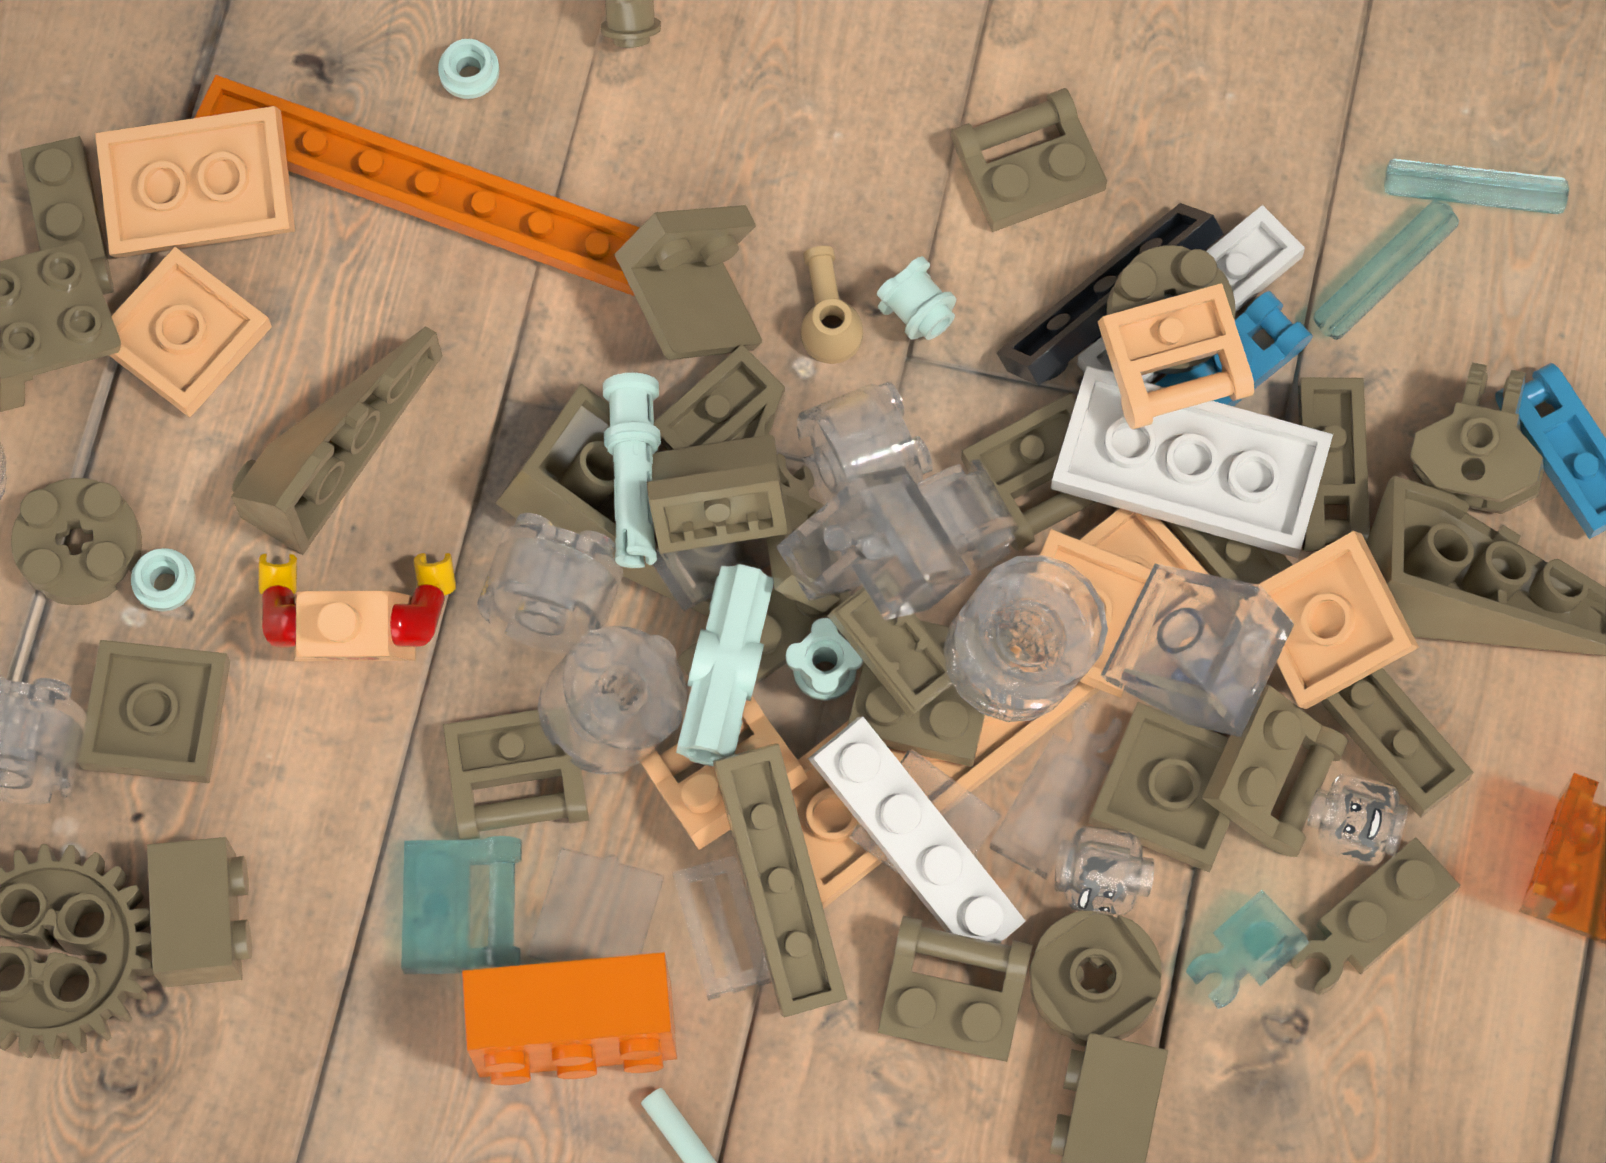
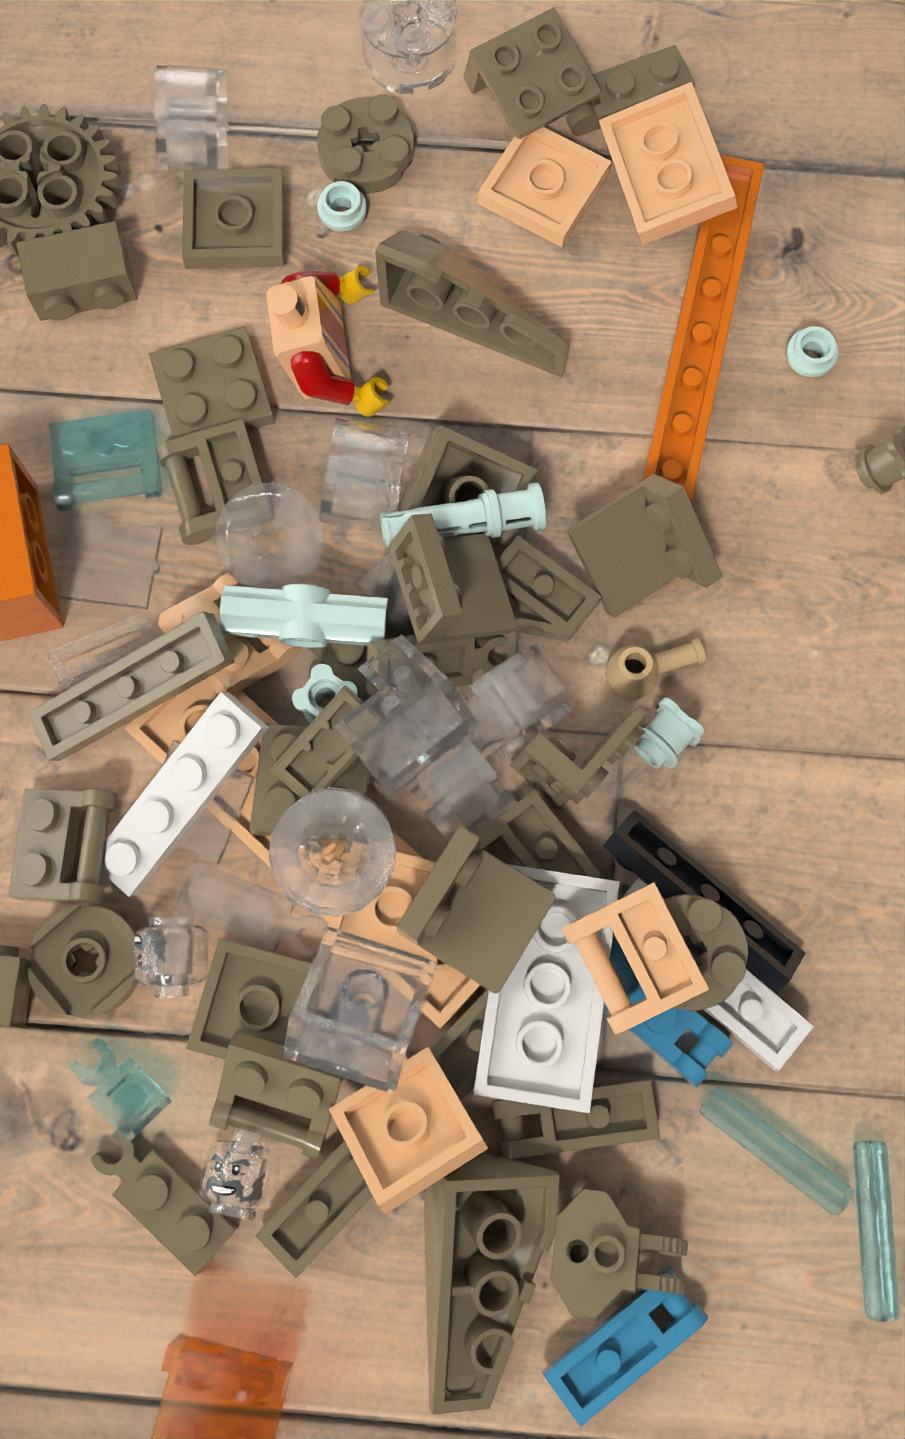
camera: 80 degrees right, 5 degrees up
(383, 767) = (211, 383): none -> dark tan plate
(952, 383) = (550, 764): none -> dark tan bracket
(1036, 177) = (807, 825): dark tan plate -> none
(1106, 512) = (475, 912): none -> dark tan bracket

